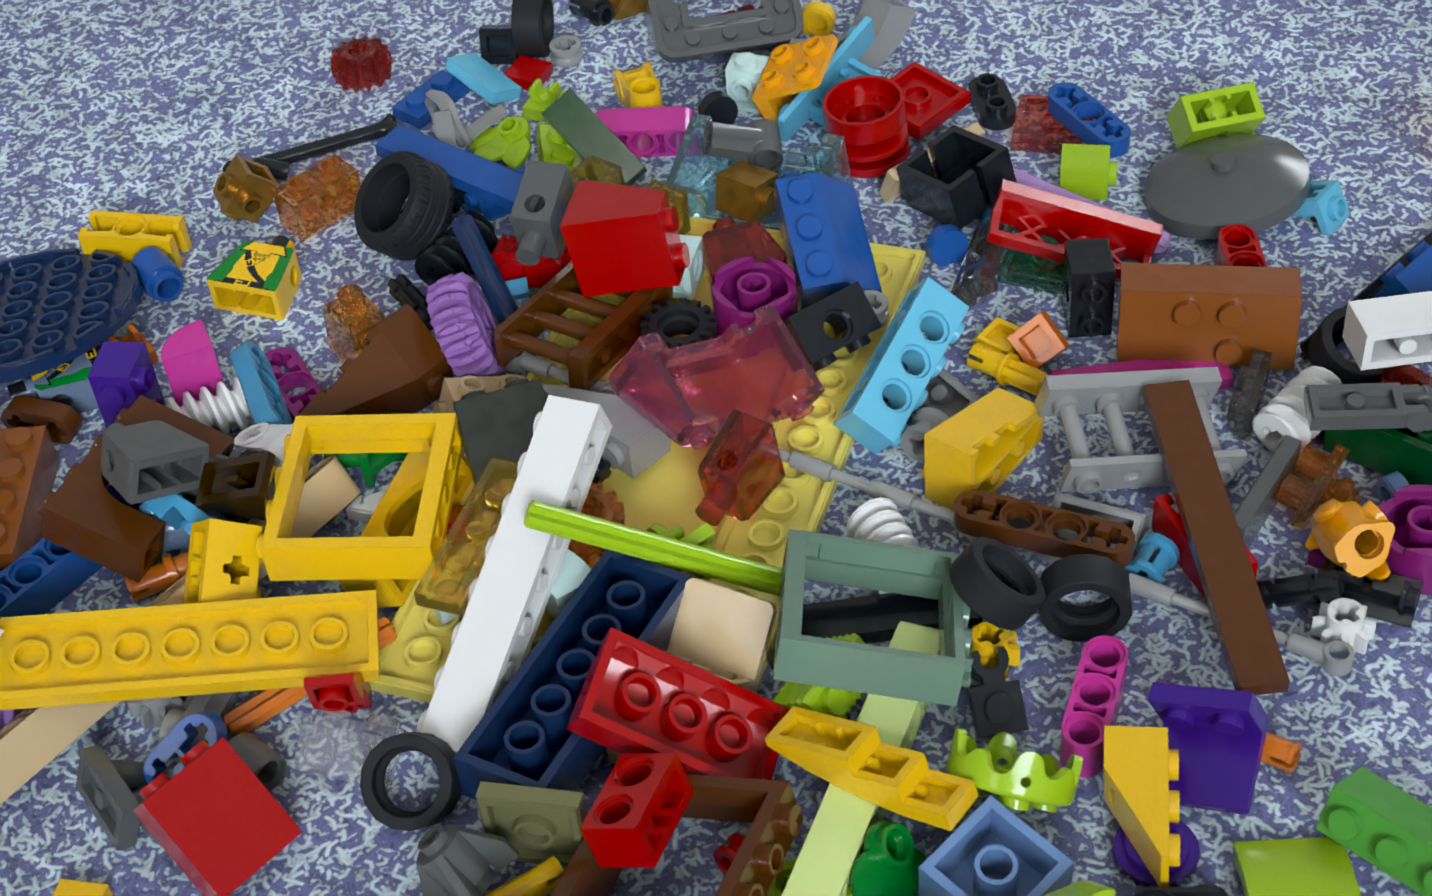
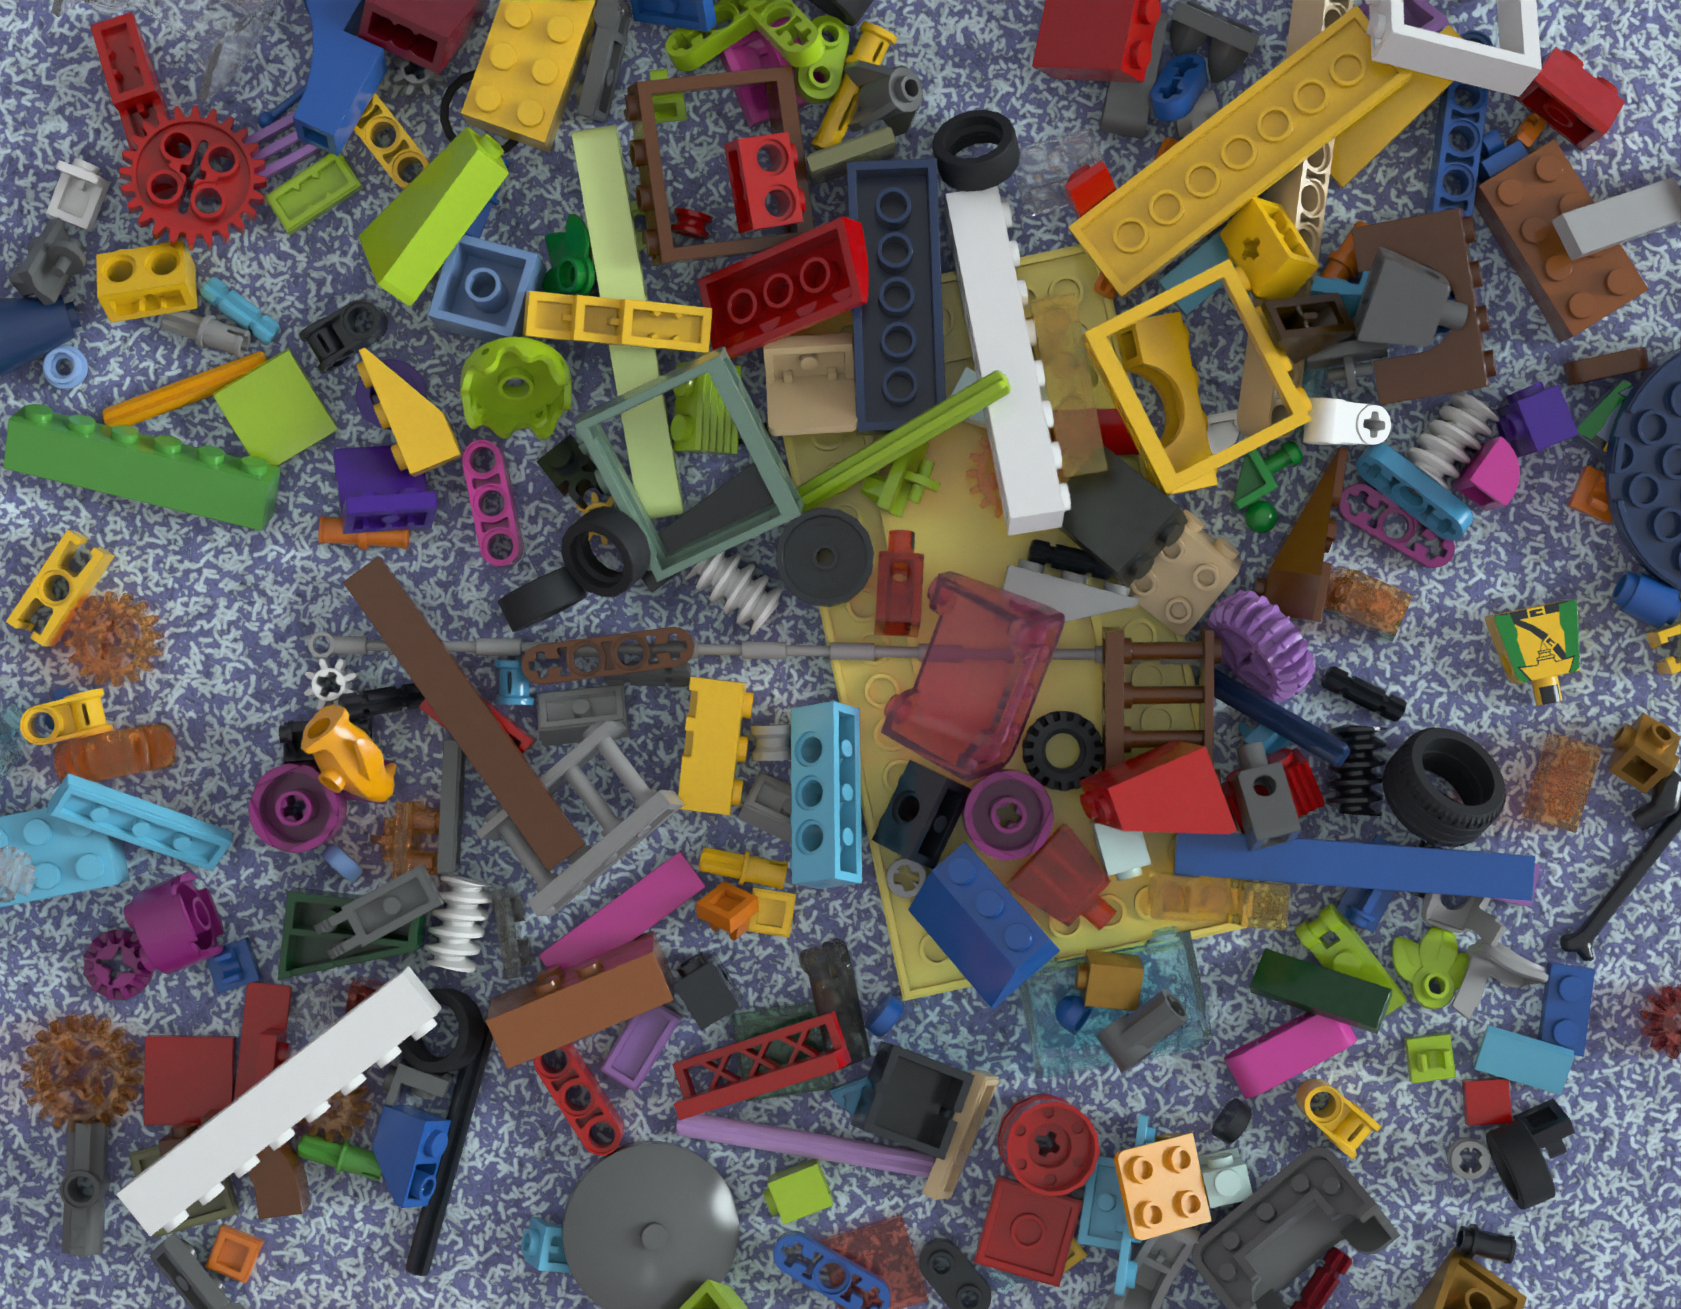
camera: 145 degrees right, 45 degrees up
(783, 498) = (845, 540): none -> black wheel

